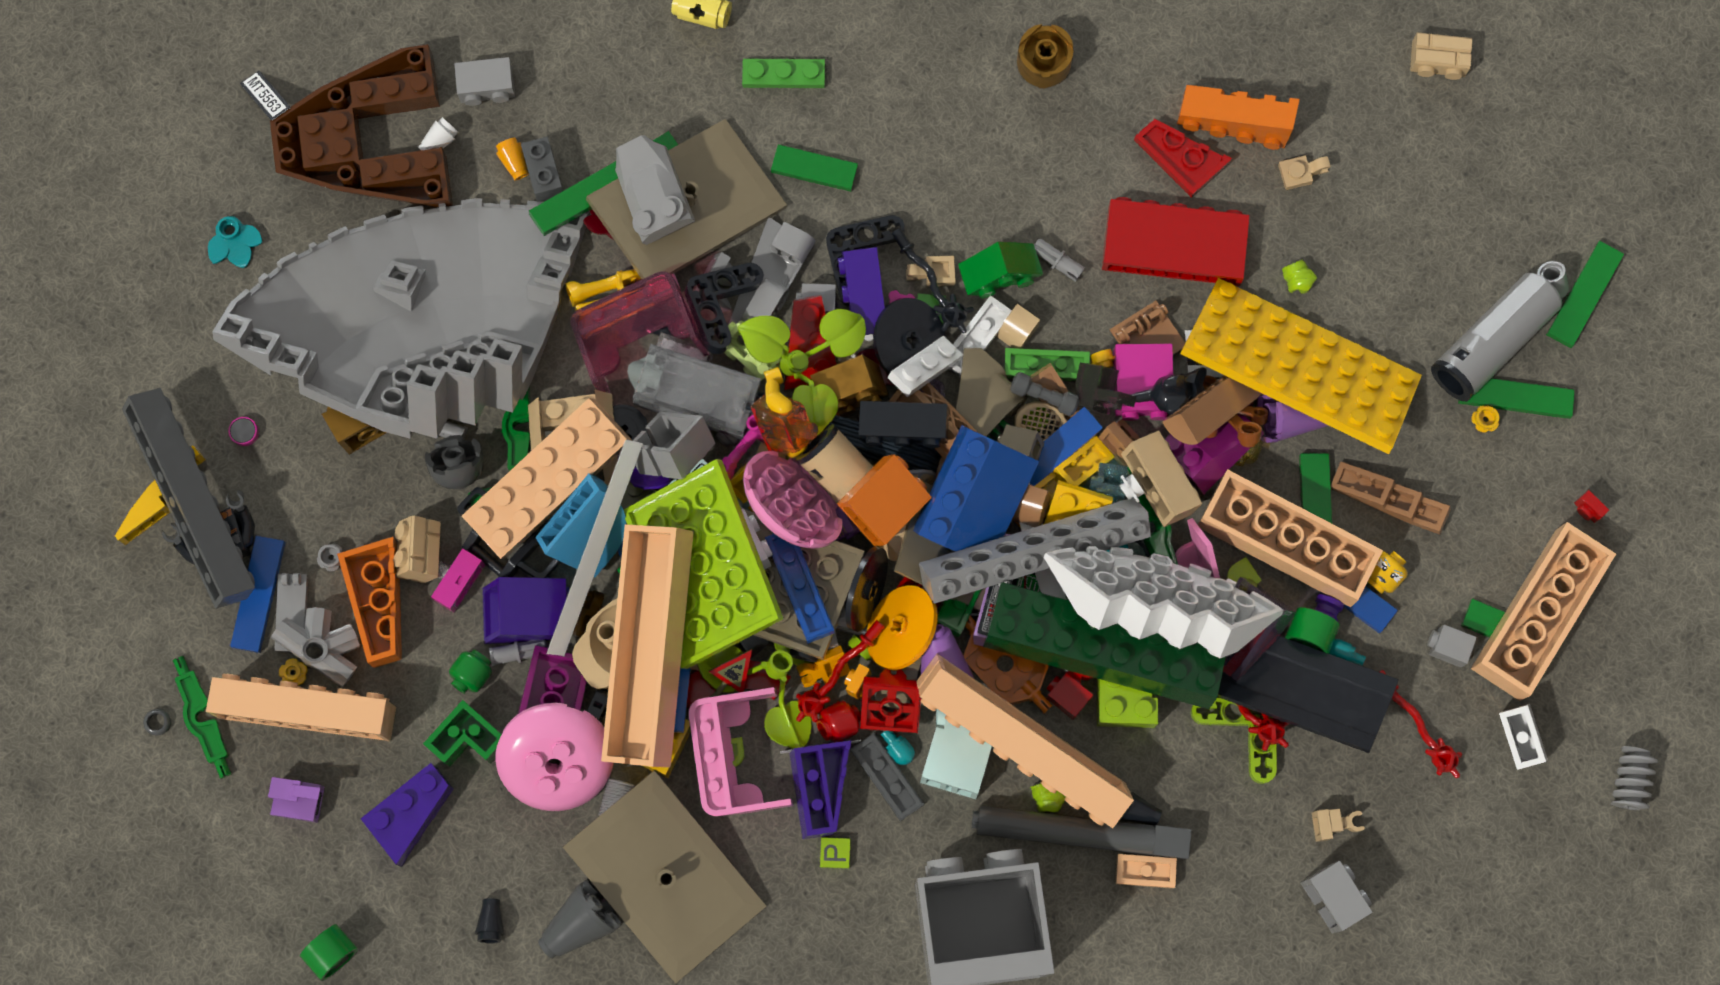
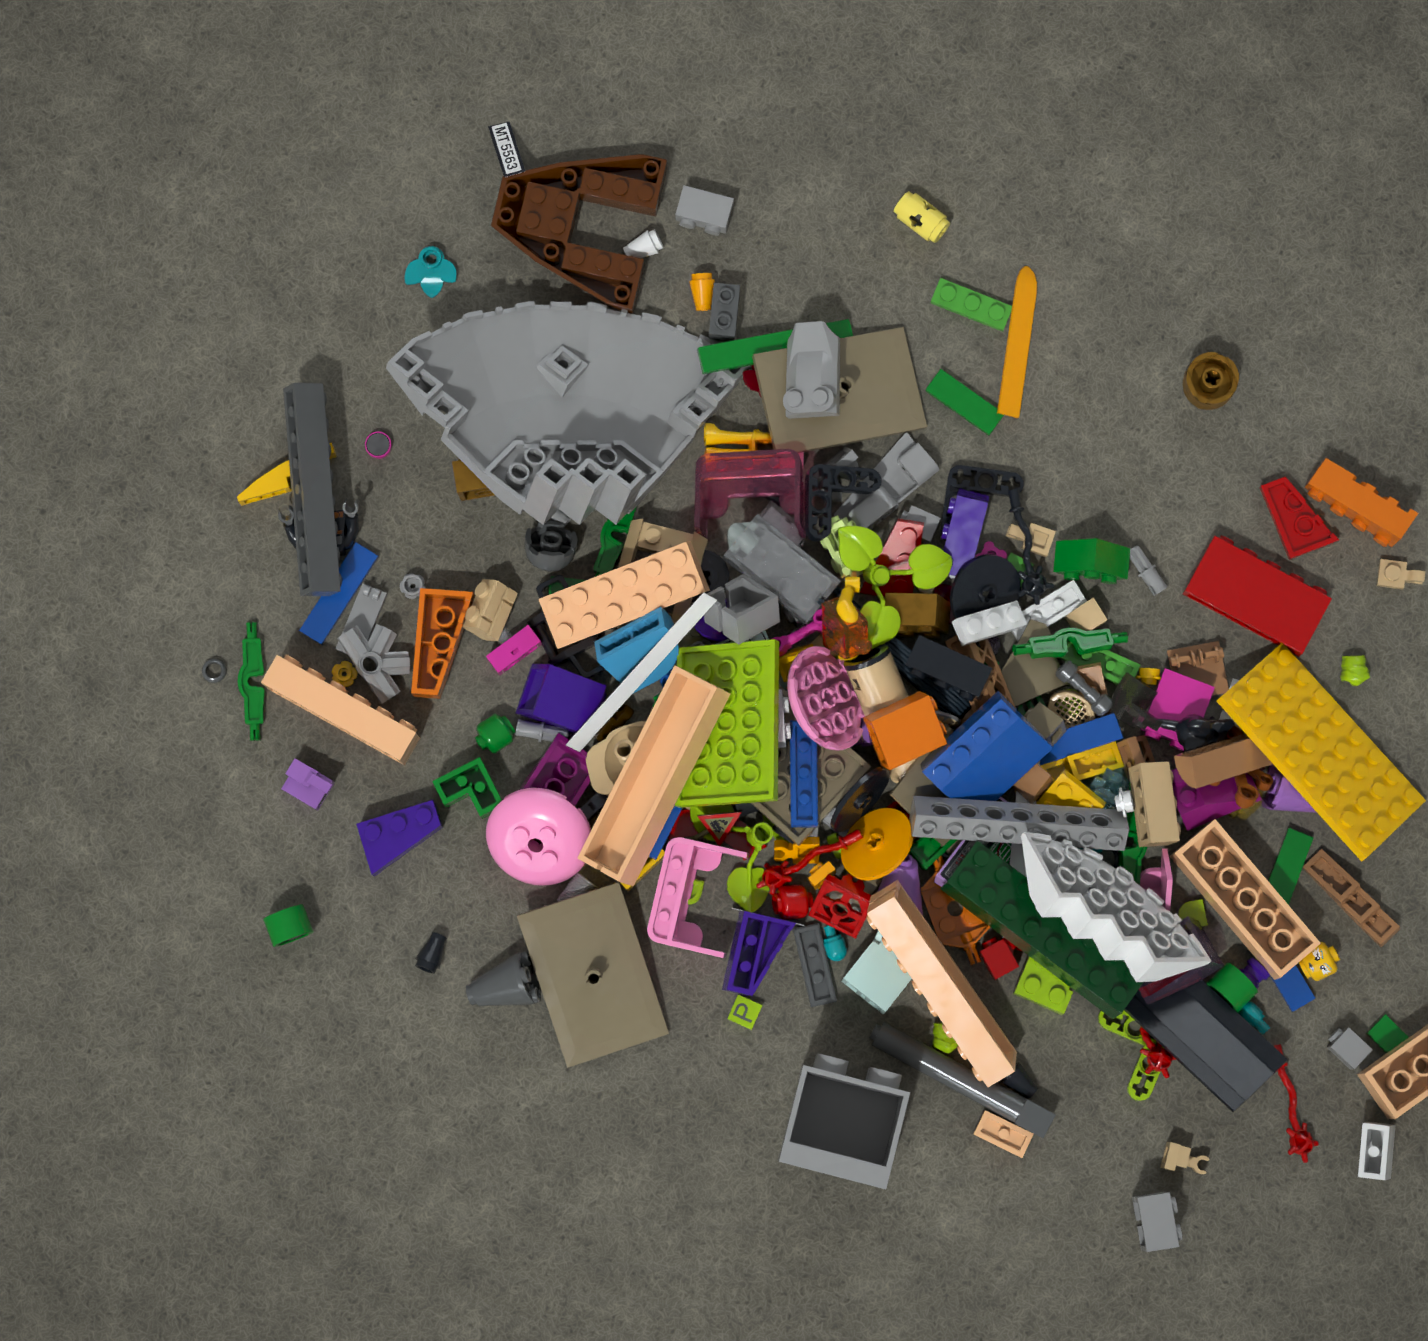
camera: 25 degrees right, 5 degrees up
(844, 93) = (1018, 343): none -> light orange piece
(1000, 362) = (1083, 641): none -> green piece

